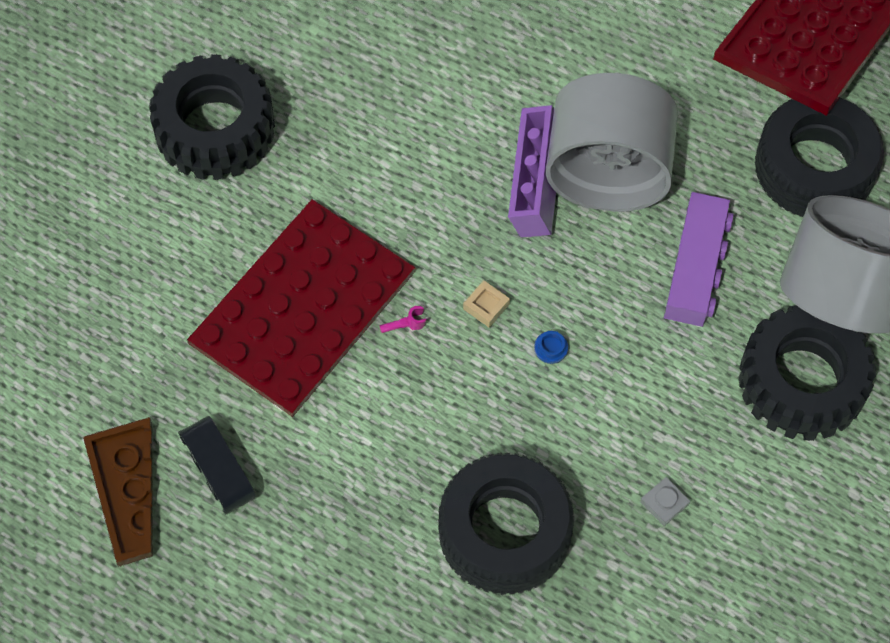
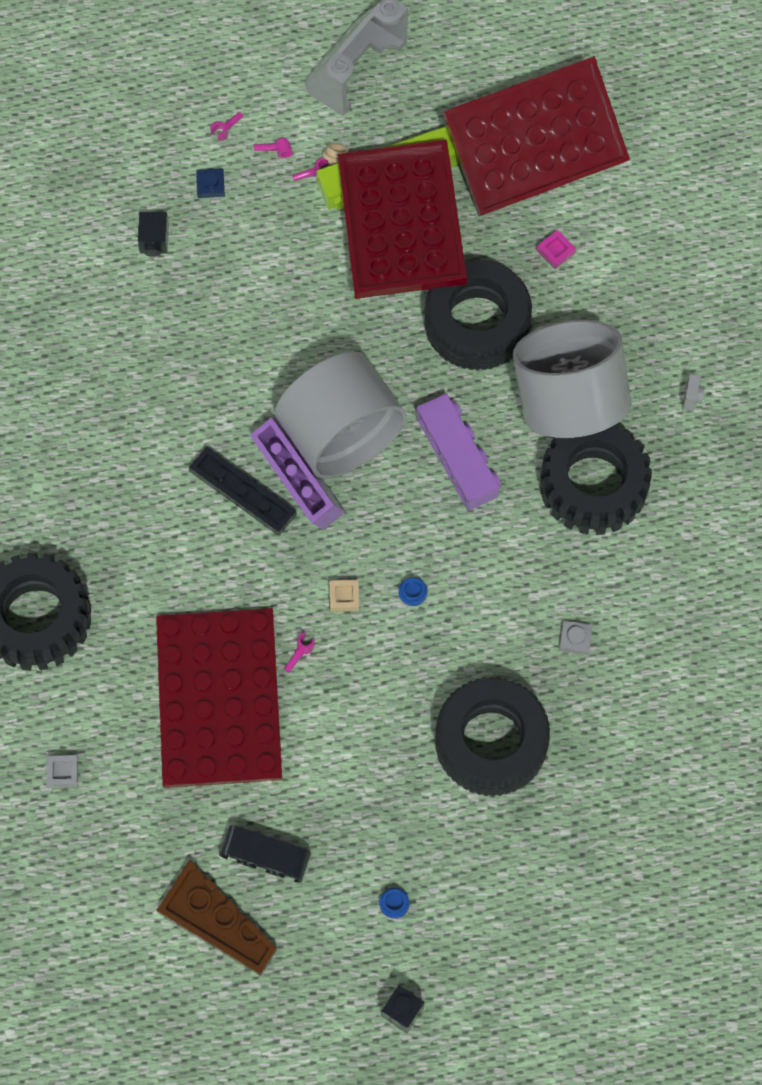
camera: 40 degrees left, 5 degrees up
(118, 263) = (62, 771): none -> light grey plate
(289, 600) = (394, 903): none -> blue plate
(478, 154) = (242, 491): none -> black plate

